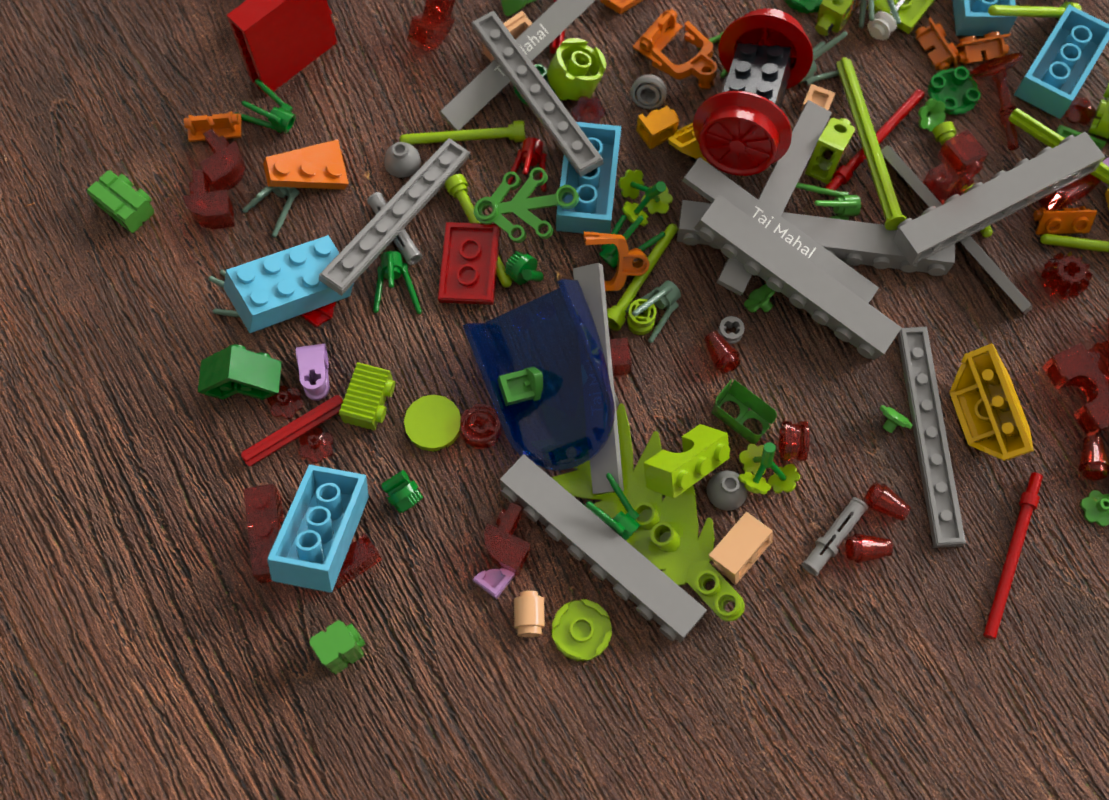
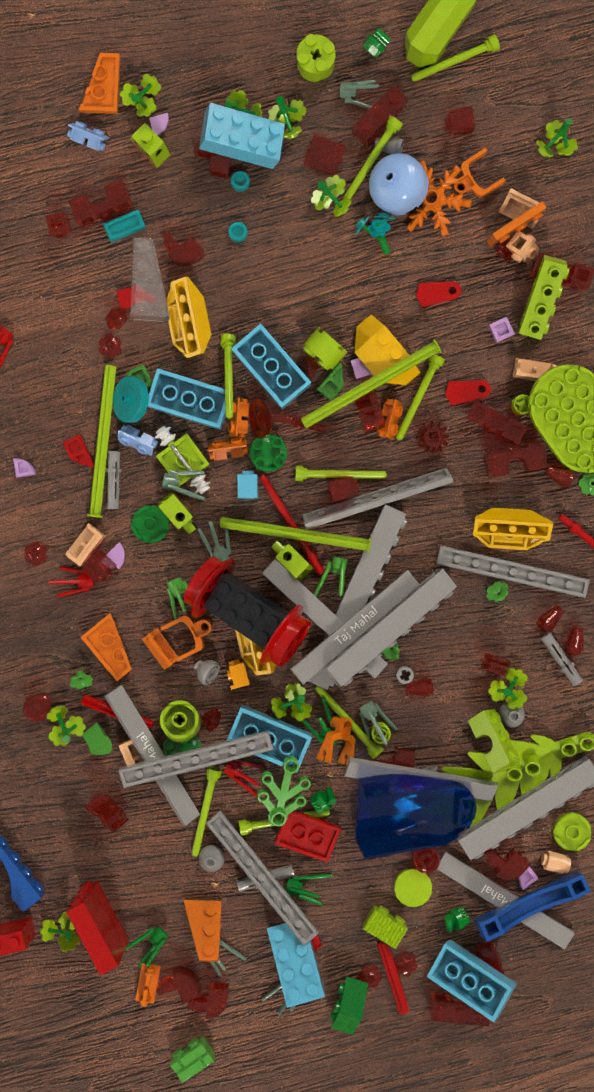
camera: 75 degrees left, 20 degrees up
(313, 367) = (353, 956): lavender piece -> none
(338, 646) = (546, 984): bright green brick -> none
(447, 562) = (500, 896): none -> light grey tile
(469, 607) = (507, 916): none -> blue arch
(521, 385) = (410, 828): bright green tile -> none
(622, 523) = (520, 792): green plant -> none
(741, 547) = (552, 720): light nougat hinge -> none
(744, 399) = (475, 693): bright green piece -> none
(819, 96) = (247, 551): light nougat tile -> none
(905, 69) = (248, 485): none -> medium azure brick
(931, 114) = (284, 478): bright green plant -> none
(997, 198) = (374, 470): light grey brick -> none

